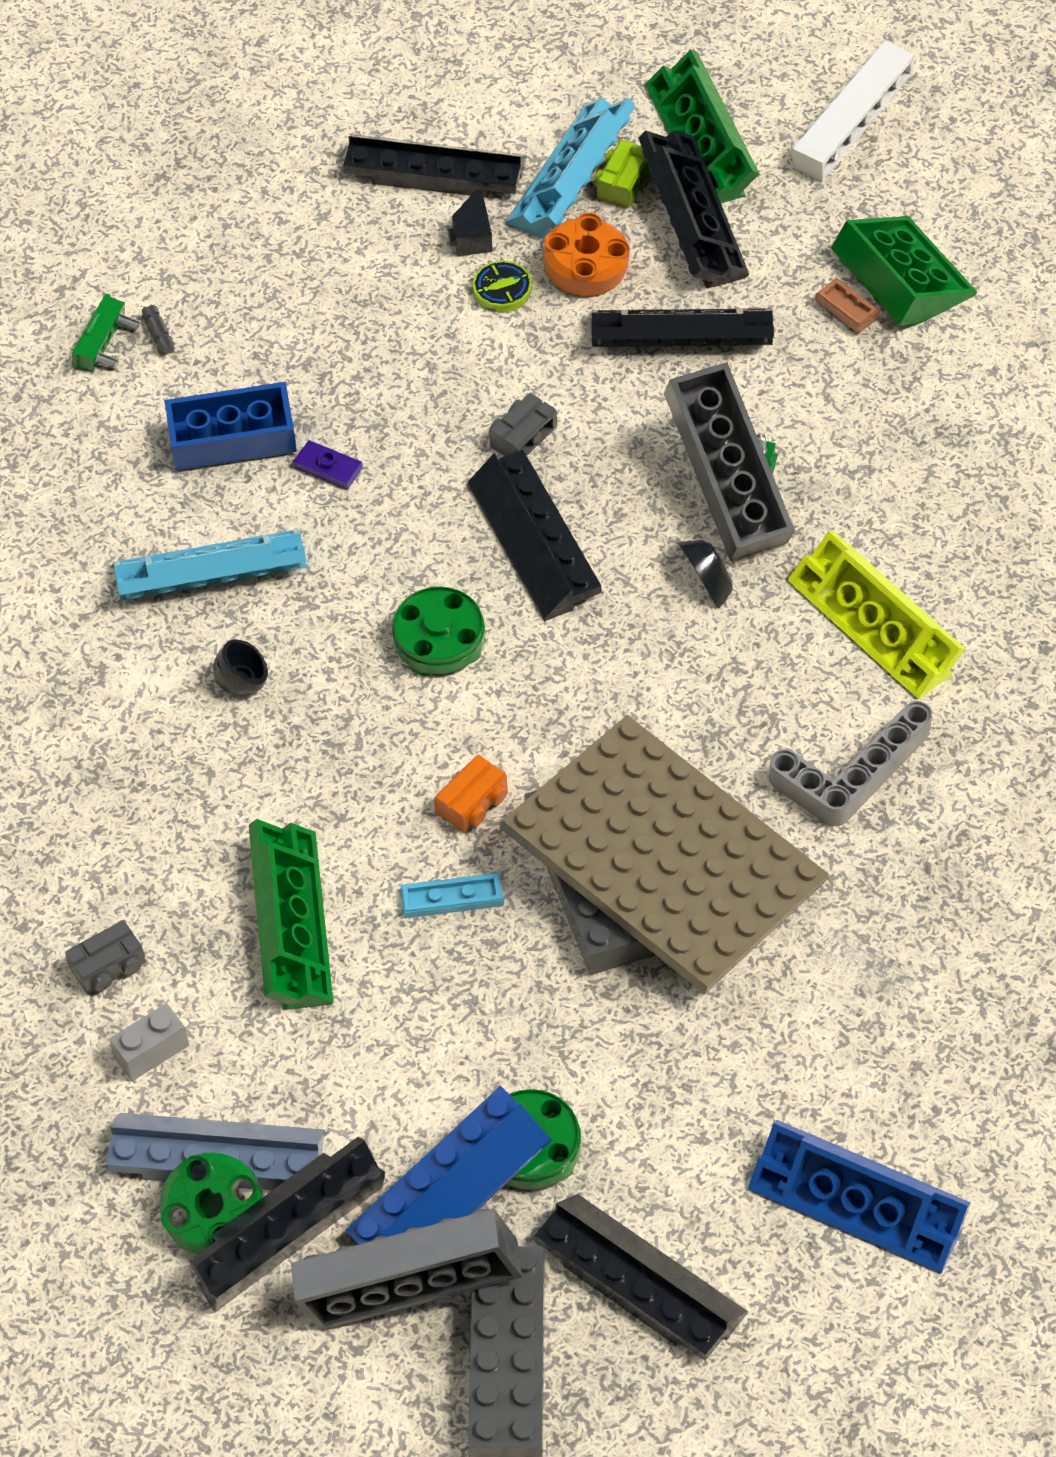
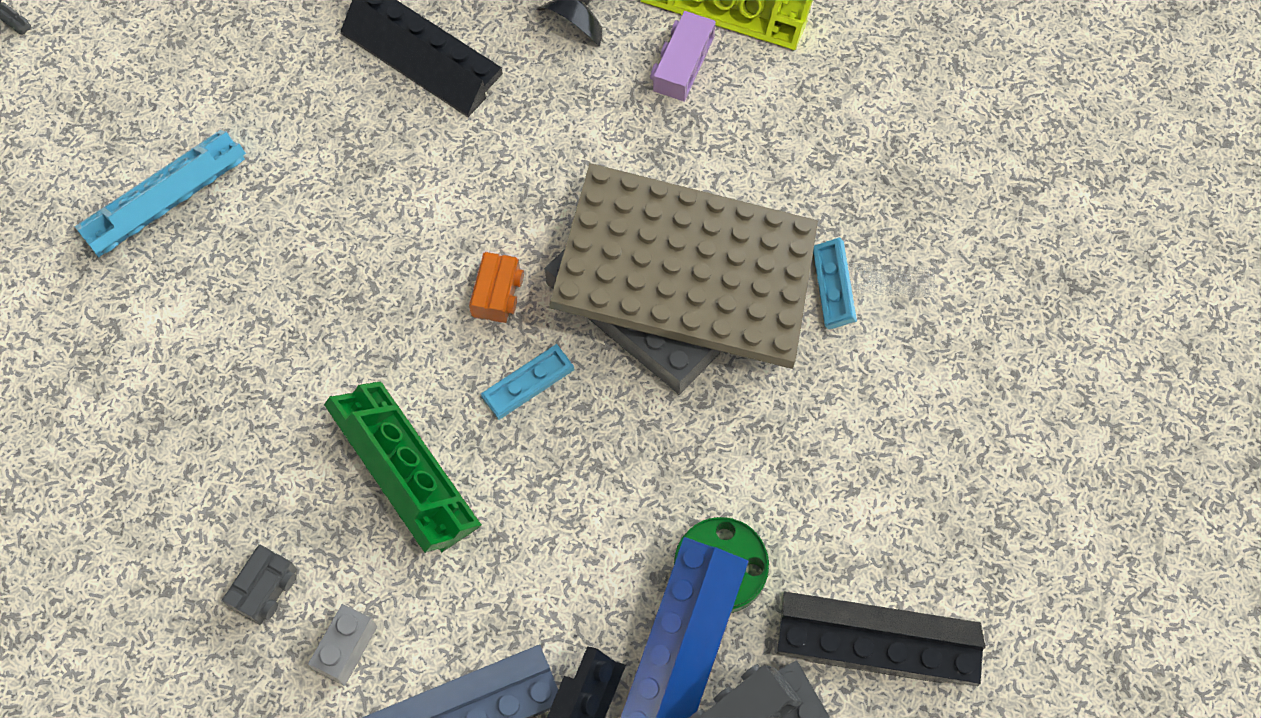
camera: 30 degrees left, 10 degrees up
(230, 425) = (115, 67): blue brick -> none
(240, 668) = (238, 269): black hat -> none
(328, 464) = (216, 66): dark purple plate -> none
(438, 630) = (389, 162): green piece -> none
(794, 653) = (683, 55): none -> lavender brick
(806, 940) = (834, 283): none -> medium azure tile
(859, 771) = (788, 150): light grey beam -> none
(859, 1196) = (1009, 477): blue slope -> none

